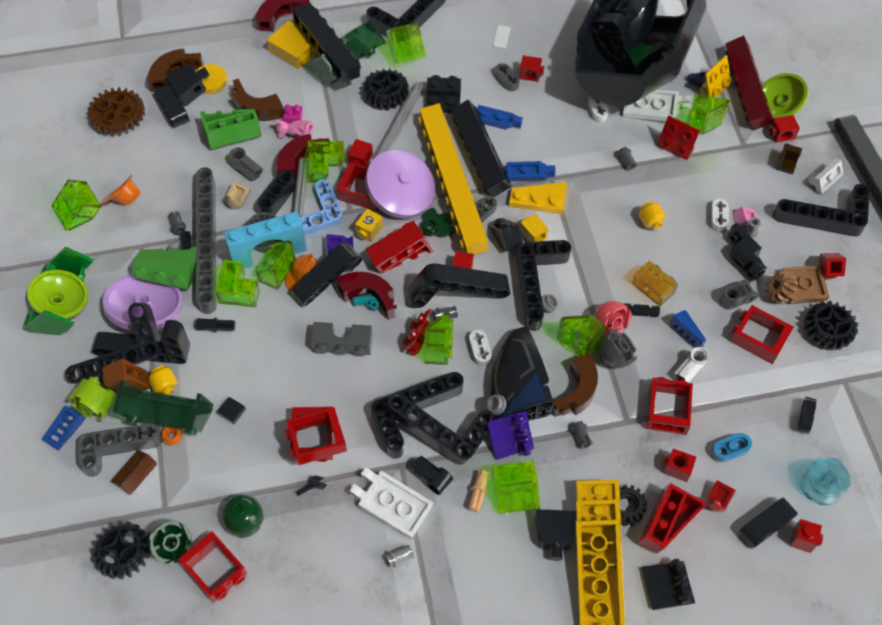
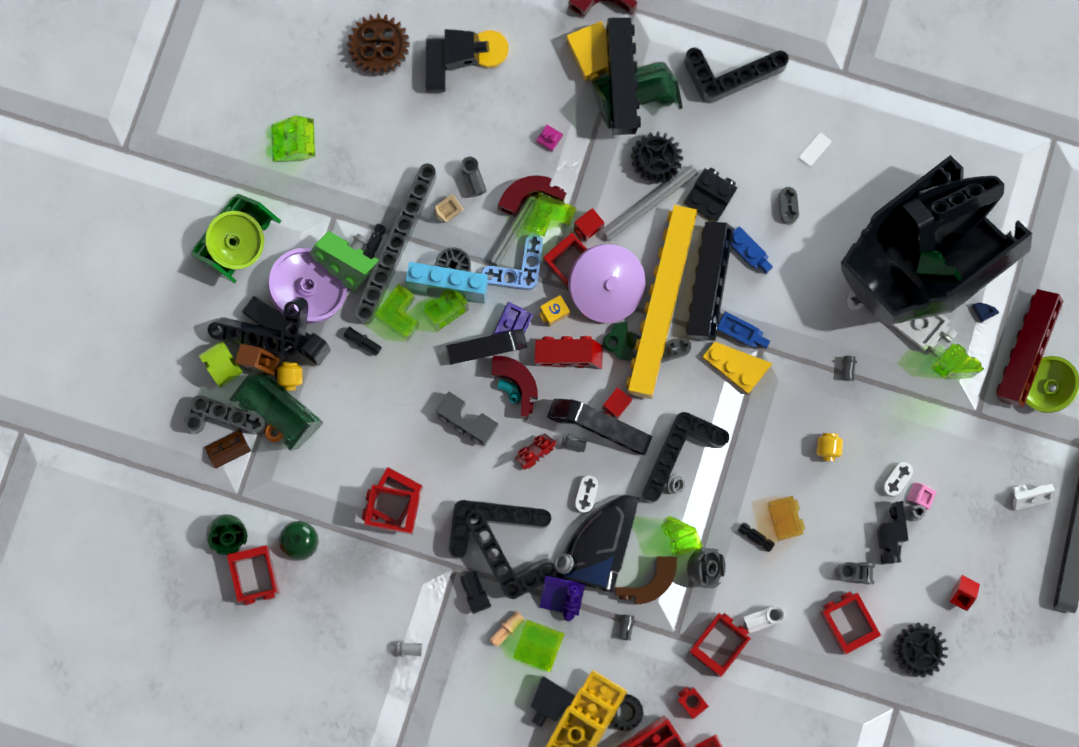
camera: 25 degrees right, 20 degrees up
(68, 432) = (197, 375): blue slope -> none
(104, 548) = (190, 510): black gear -> none
(124, 194) = (340, 148): orange piece -> none
(170, 62) = (455, 12): reddish brown arch -> none
(177, 224) = (378, 210): dark grey pin -> none
(230, 127) = (478, 126): bright green wedge -> none
(231, 410) = (336, 435): black tile -> none
(266, 108) = (518, 116): reddish brown arch -> none
(283, 186) = (490, 220): black beam -> none
(295, 128) = (545, 162): bright pink animal -> none
(299, 269) = (468, 326): orange piece -> none
(313, 484) = (372, 545): black hand -> none
(392, 502) = (429, 599): white tile -> none
(406, 43) = (706, 115): clear neon green slope -> none
(439, 340) = (548, 471): clear neon green slope -> none
(506, 233) = (678, 390): black slope -> none
(531, 68) = (818, 210): red brick -> none
(533, 229) = (706, 400): yellow brick -> none
(613, 315) = (720, 532): coral cylinder -> none
(678, 137) = (910, 376): red hinge -> none
(687, 328) = (785, 578): blue slope -> none
(717, 79) = (997, 329): yellow hinge -> none
(730, 447) = (749, 712): dark azure plate -> none
(781, 287) = (899, 589): medium nougat gear -> none
(784, 128) = (1028, 420): red brick -> none
(788, 158) = (1008, 456): dark brown panel -> none
(807, 414) = (836, 720): black beam -> none
(811, 284) = (927, 596): medium nougat plate -> none
(845, 222) = (1002, 539): black beam -> none

